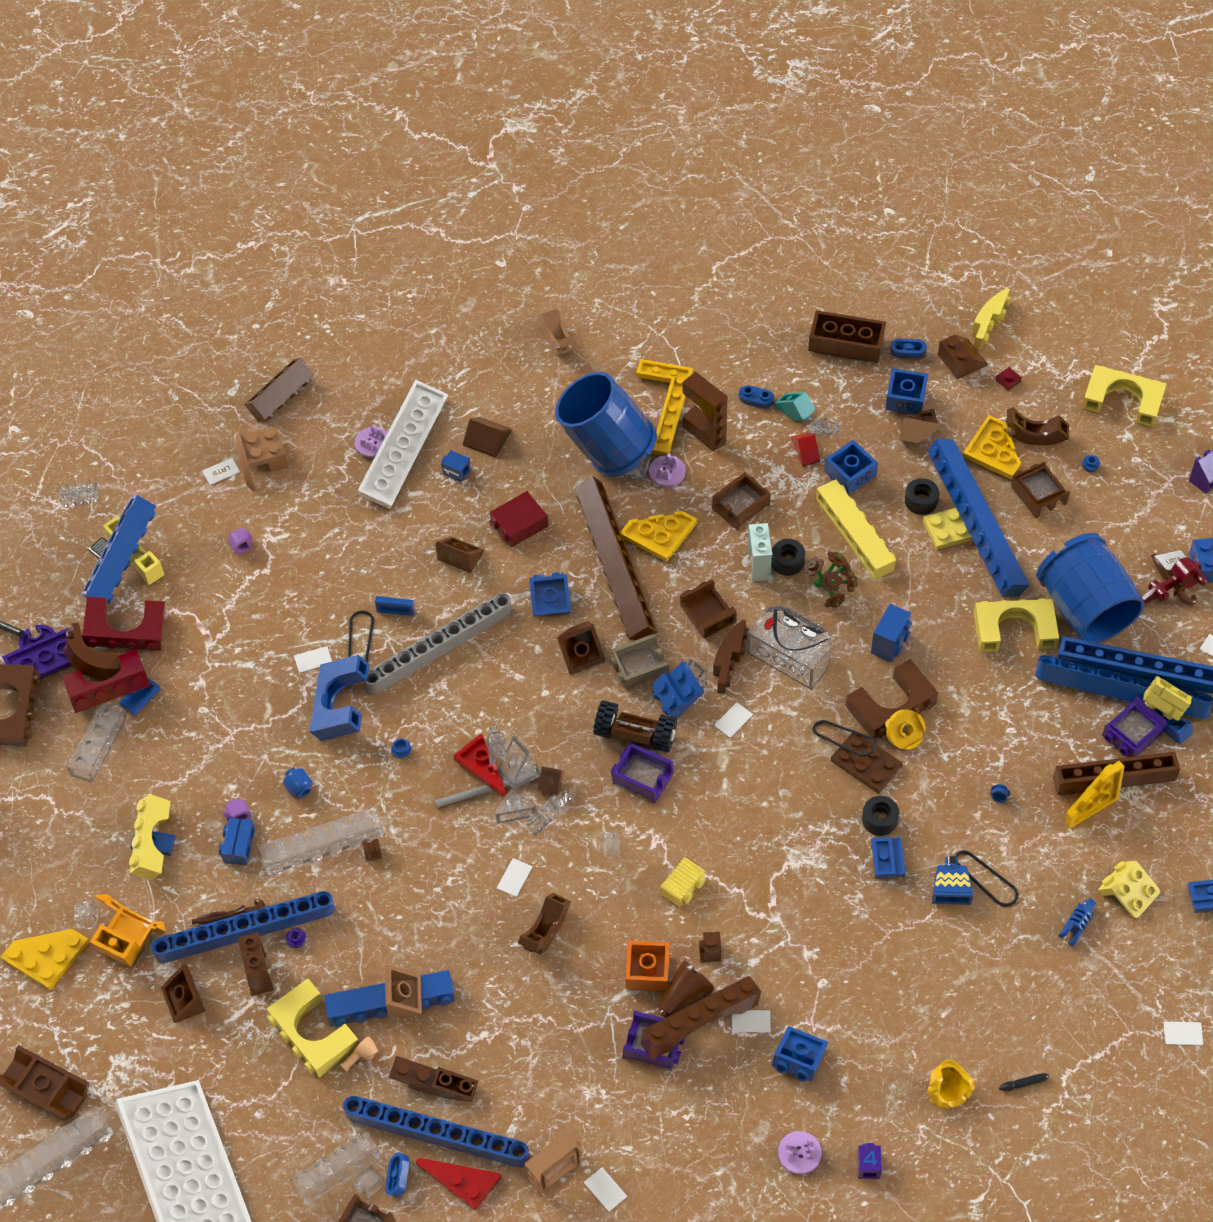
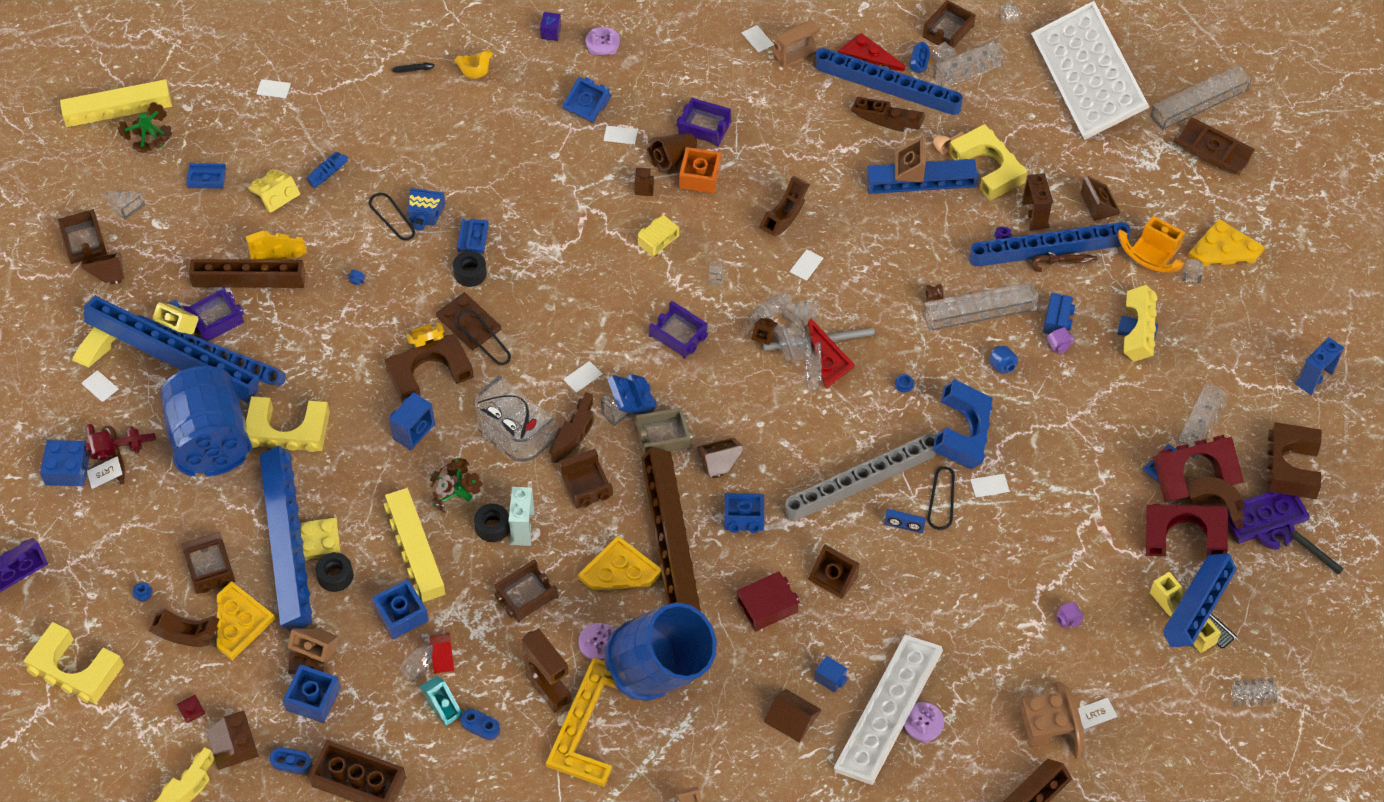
camera: 175 degrees left, 0 degrees up
(635, 727) = (678, 365): plate -> none
(670, 1031) = (635, 134): reddish brown arch -> none

